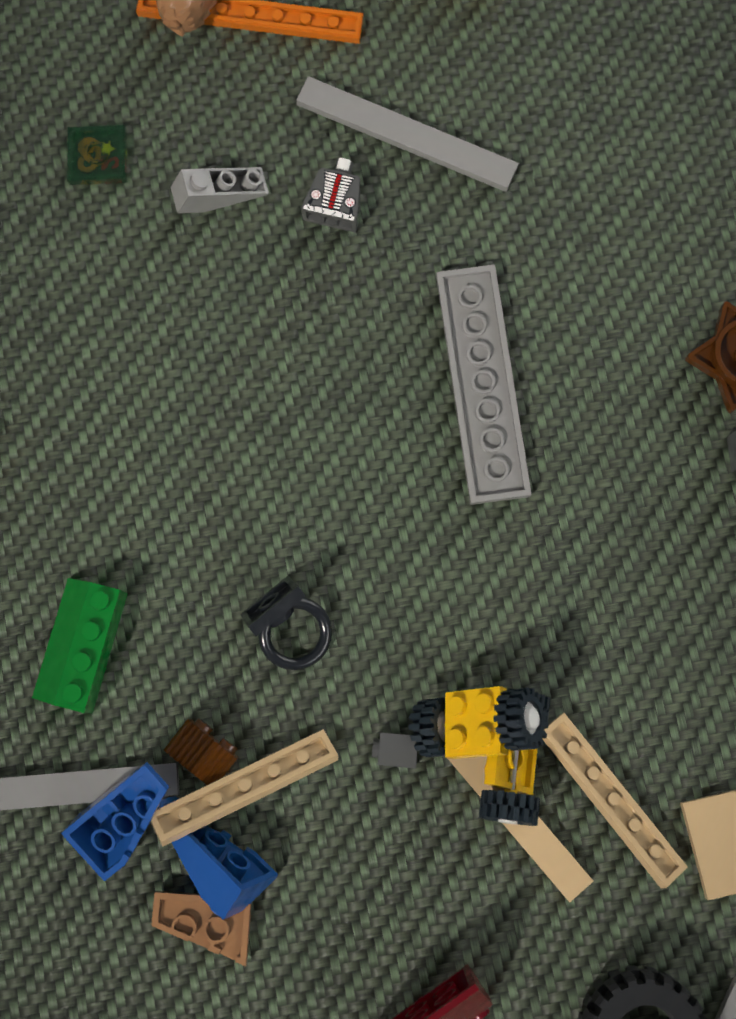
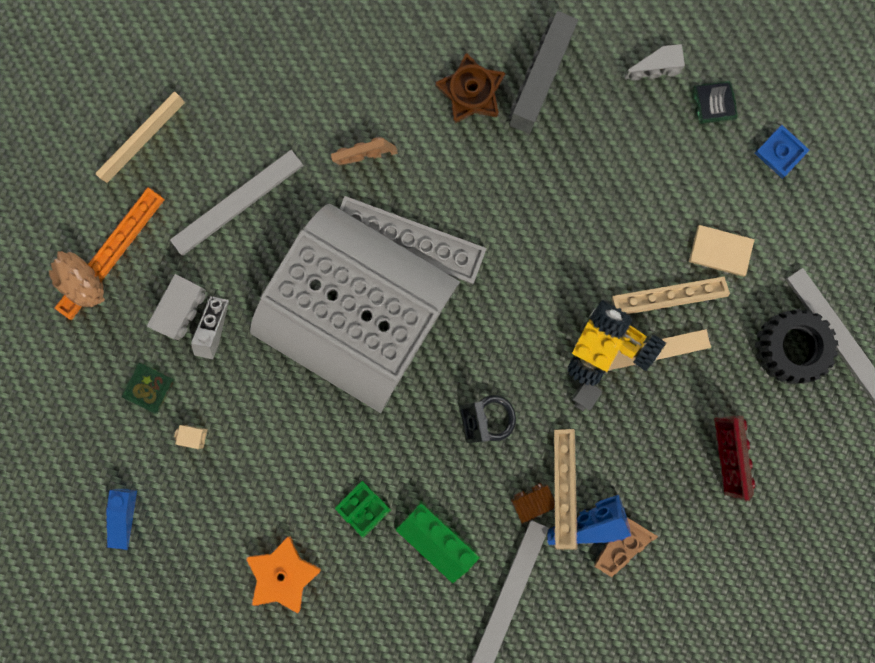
camera: 70 degrees left, 5 degrees up
(59, 240) = (190, 436): none -> tan brick
(75, 518) = (362, 509): none -> green slope
(116, 821) = (548, 568): blue wedge -> none
(220, 129) = (177, 308): none -> light grey slope
(334, 197) = (254, 263): torso -> none
(399, 344) = (367, 275): none -> light grey slope
(582, 266) = (361, 150): none -> medium nougat wing

